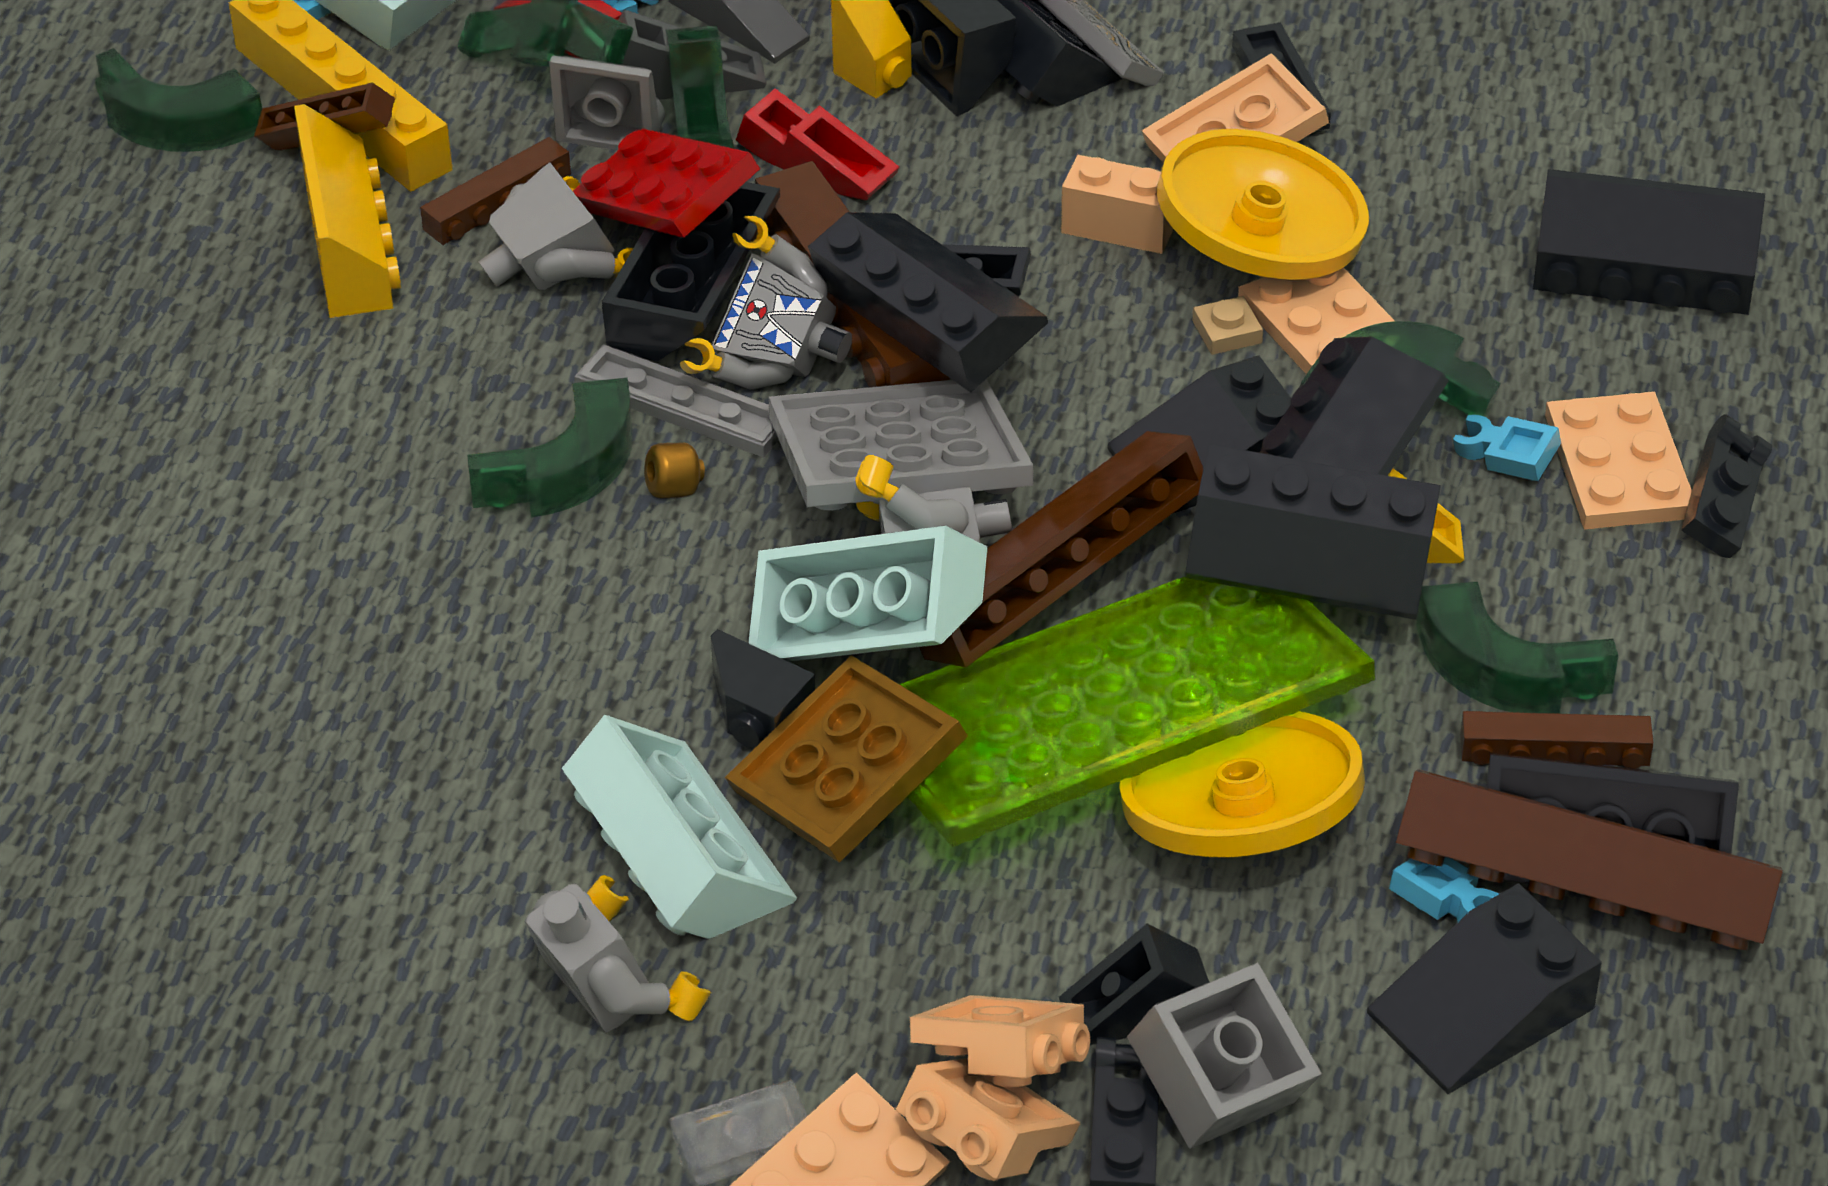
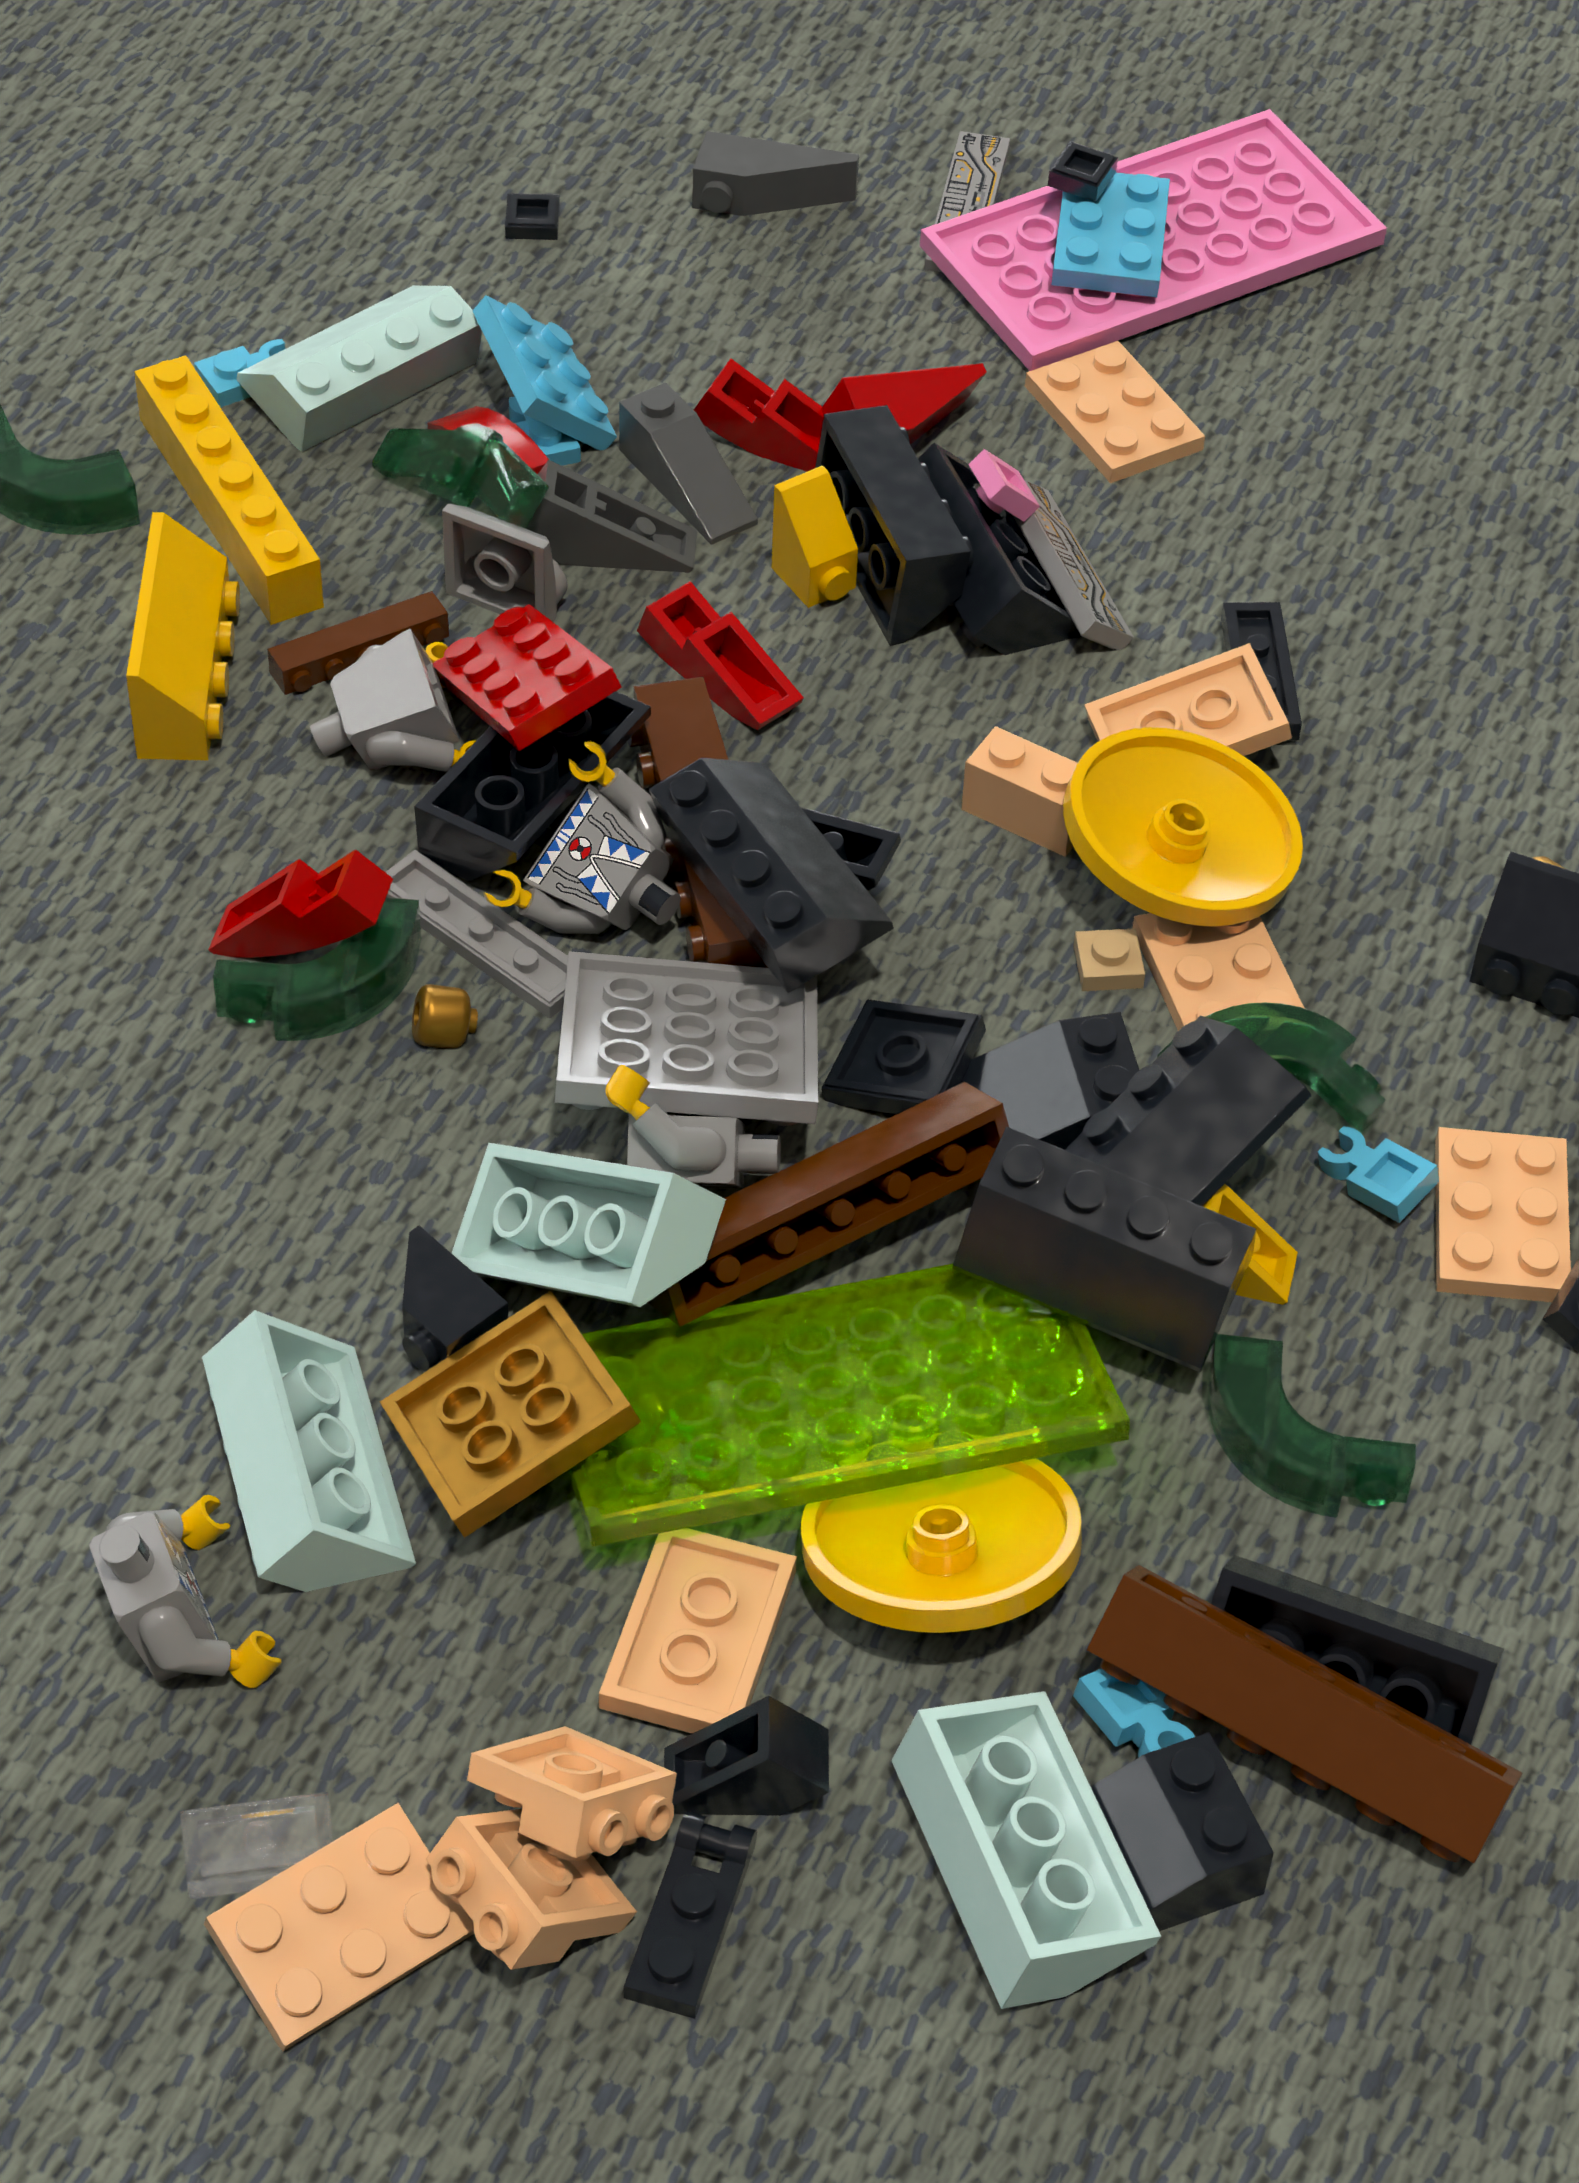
camera: 10 degrees right, 5 degrees up
(354, 108) = (219, 523): reddish brown piece -> none
(528, 402) = (303, 909): none -> red slope
(698, 85) = (606, 575): clear green arch -> none
(1057, 899) = (697, 1630): none -> light nougat plate
(1081, 427) = (902, 1056): none -> black plate
(1223, 1055) = (811, 1873): light grey brick -> none
(1389, 1004) = (1022, 1846): none -> light aqua slope
(1556, 736) = (1321, 1550): reddish brown piece -> none

